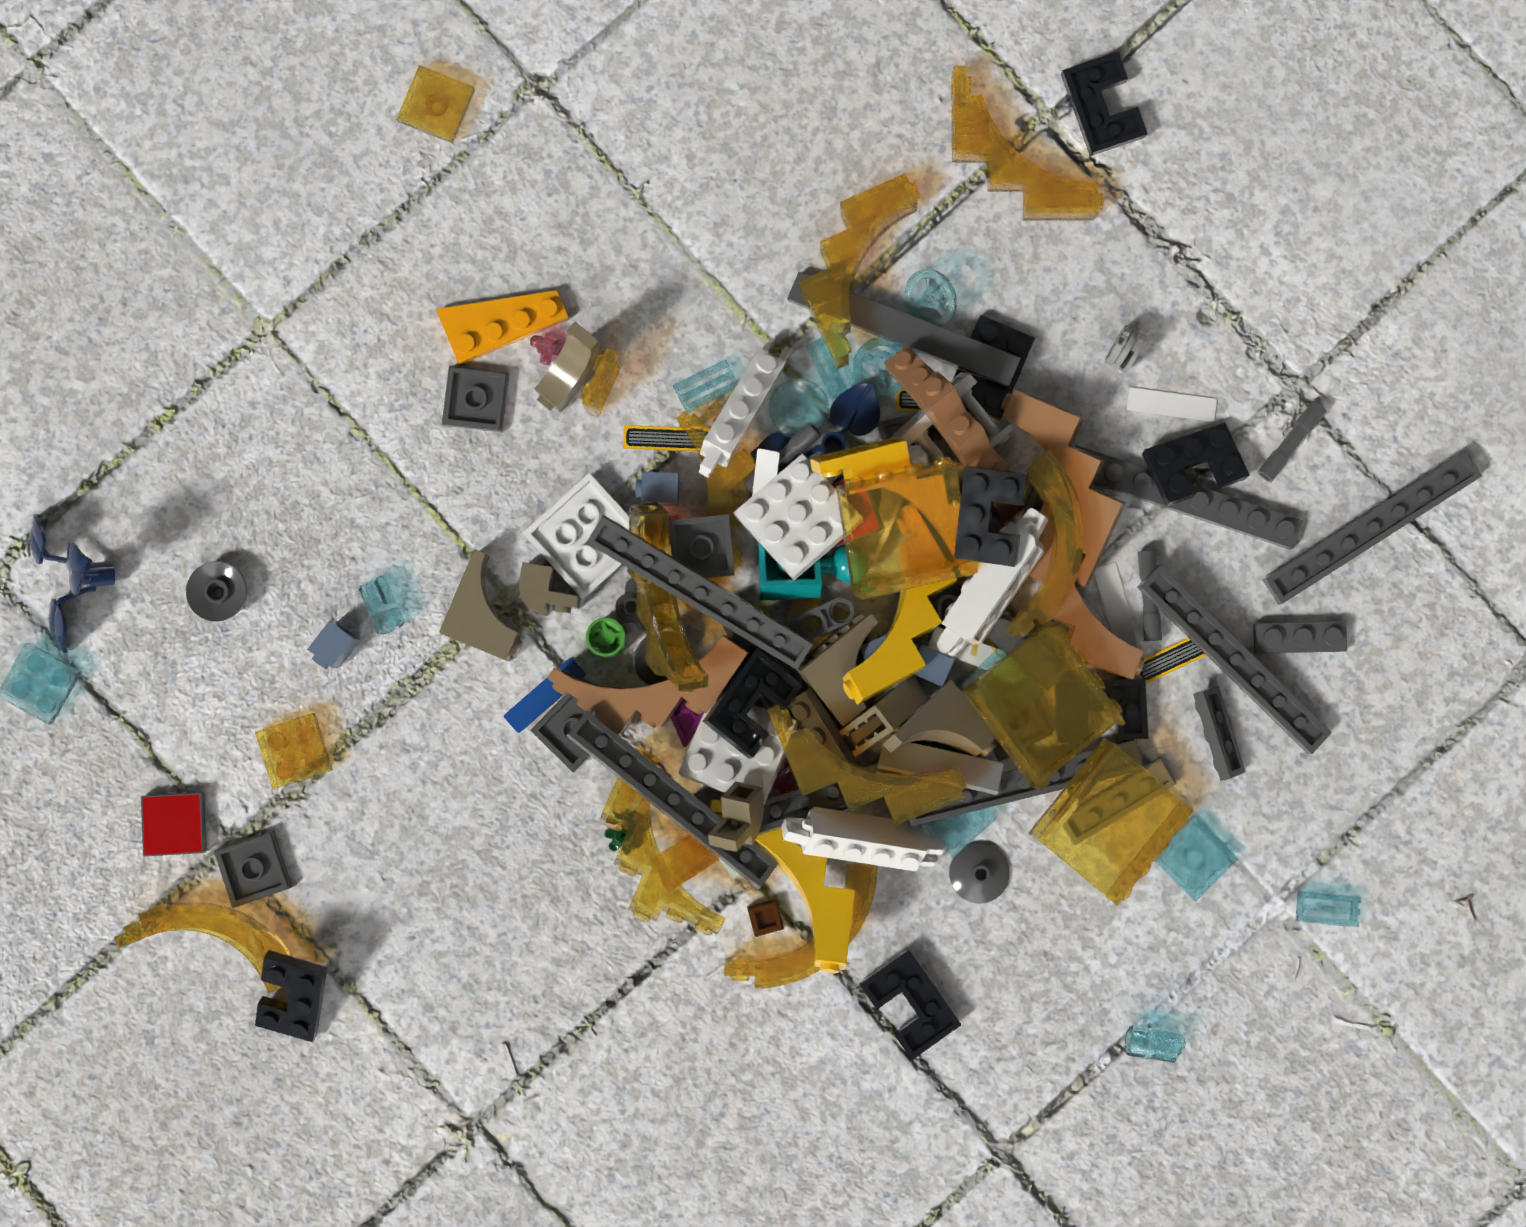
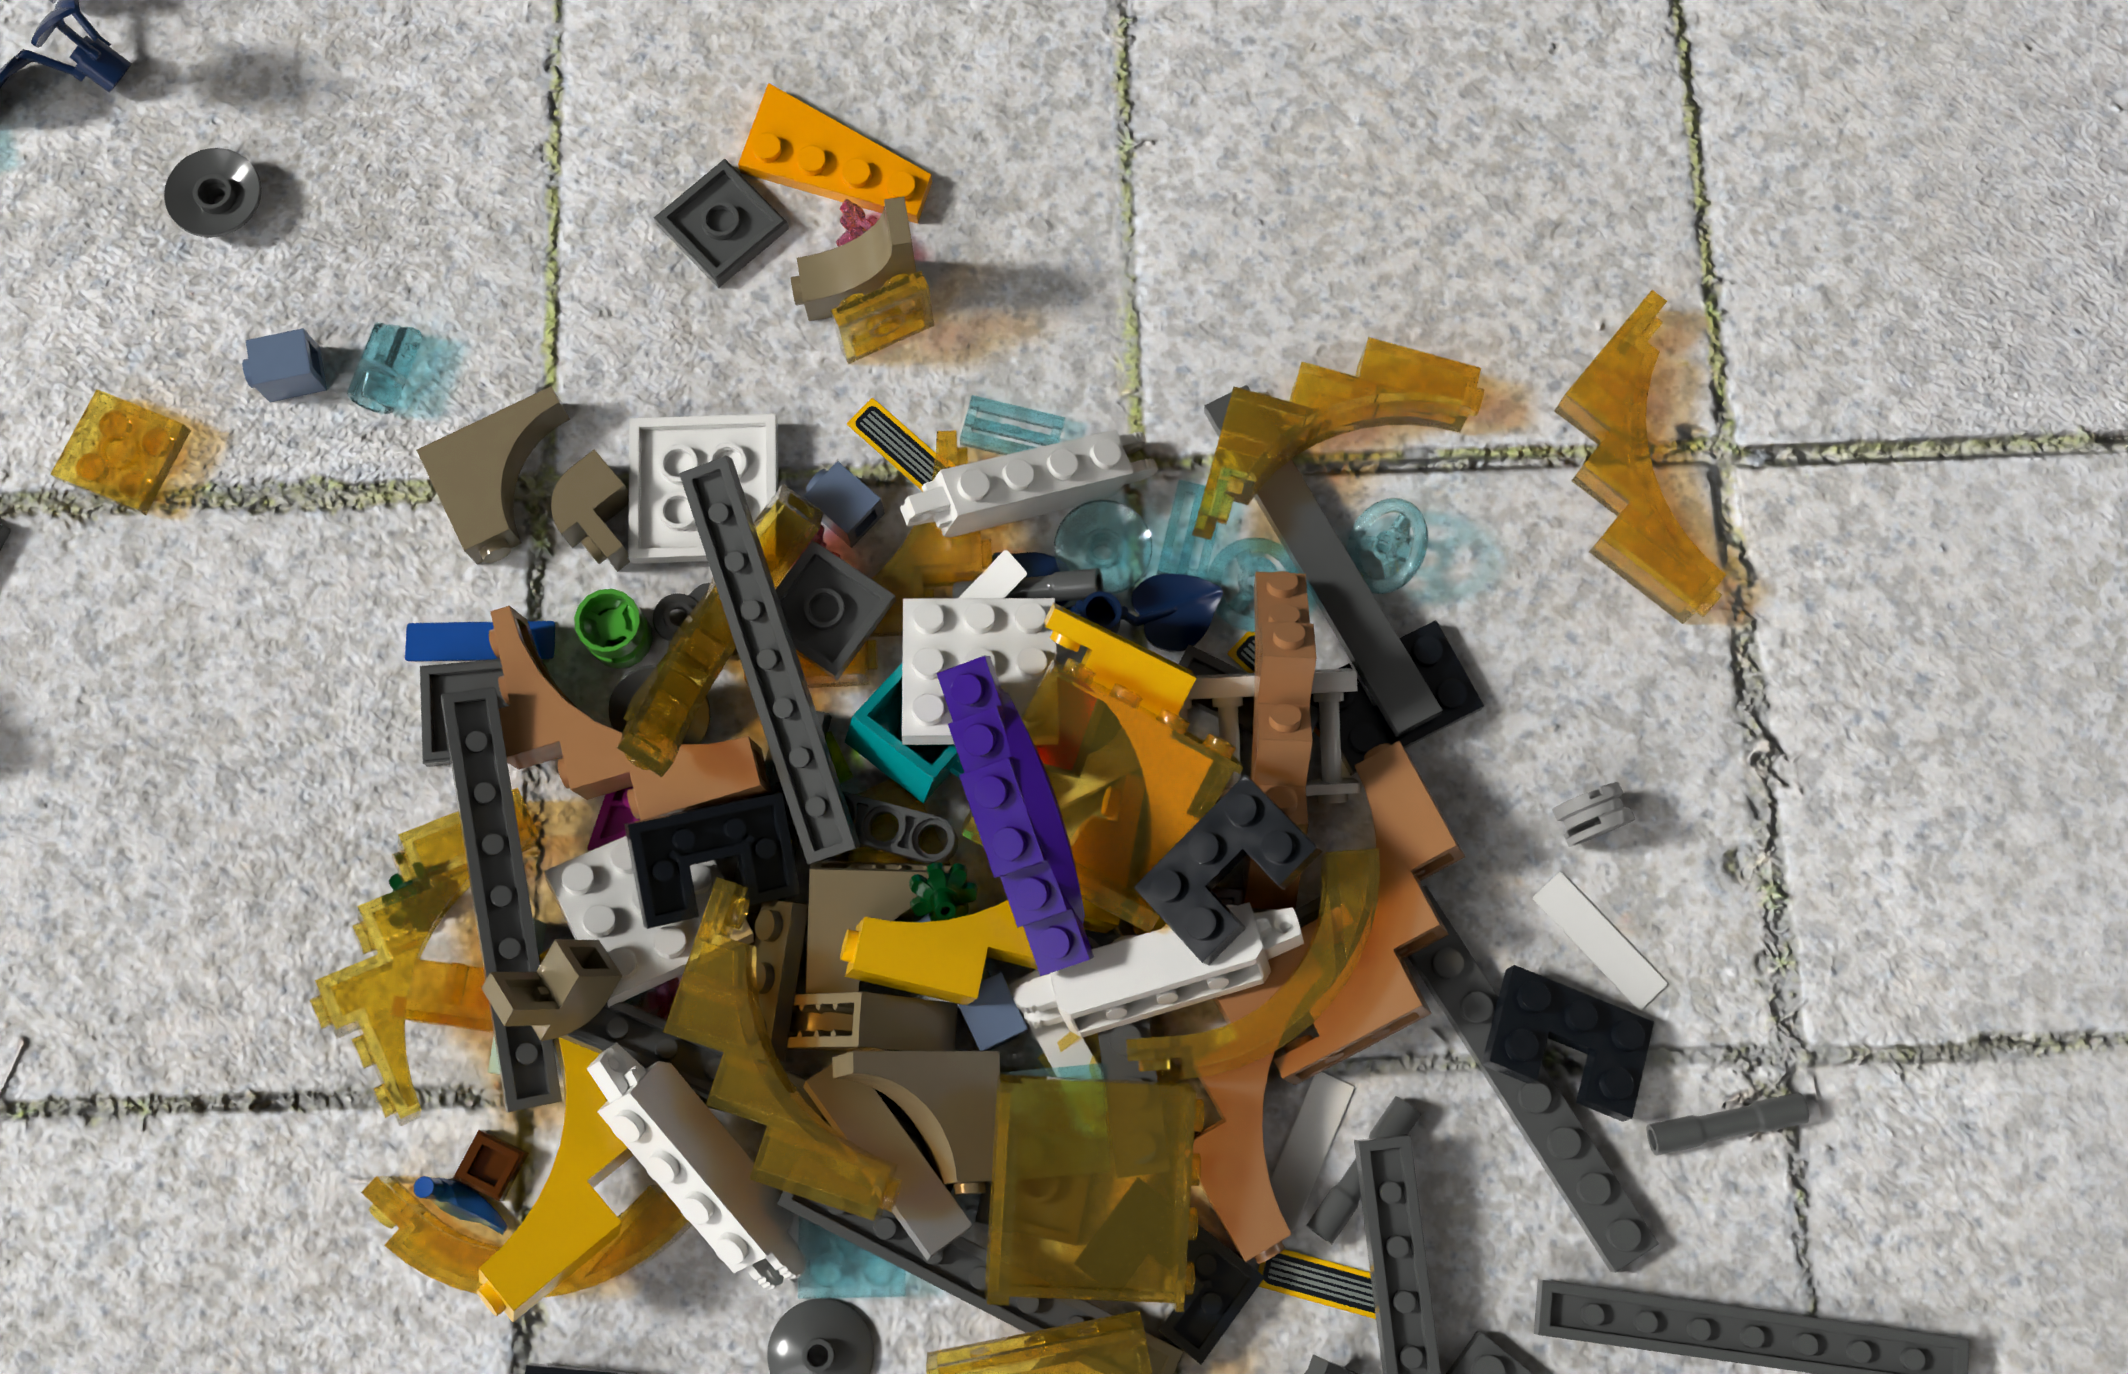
camera: 40 degrees right, 10 degrees down
(766, 944) = (459, 1201): none -> blue bar
(869, 632) = (942, 893): none -> dark green plant
(876, 568) = (1016, 815): none -> dark purple piece
(1084, 90) = (1781, 510): black plate -> none

